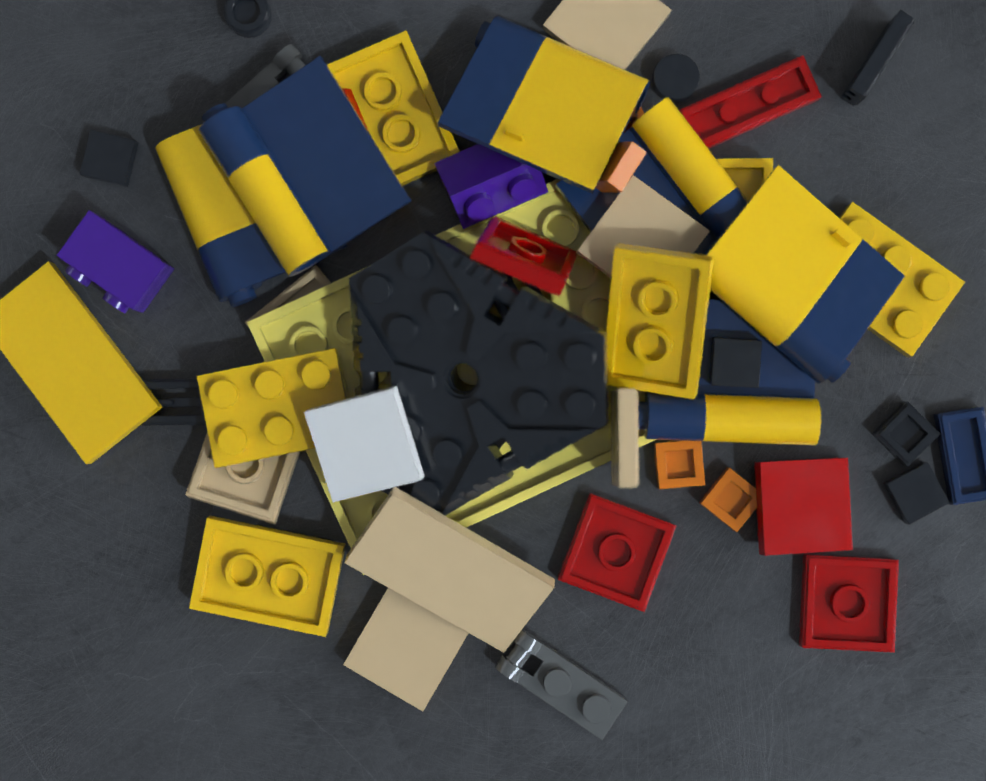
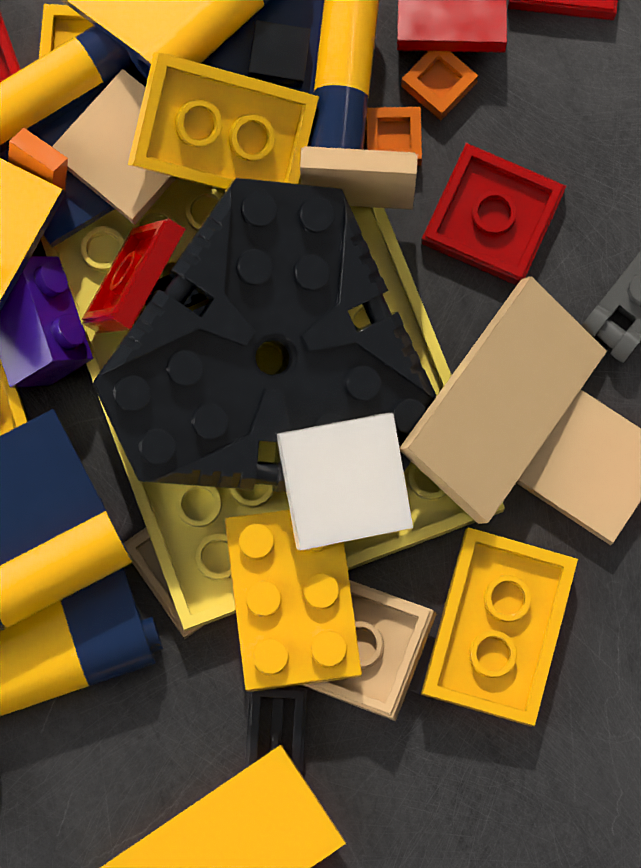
camera: 85 degrees left, 10 degrees down
(115, 263) = (95, 792): dark purple brick -> none

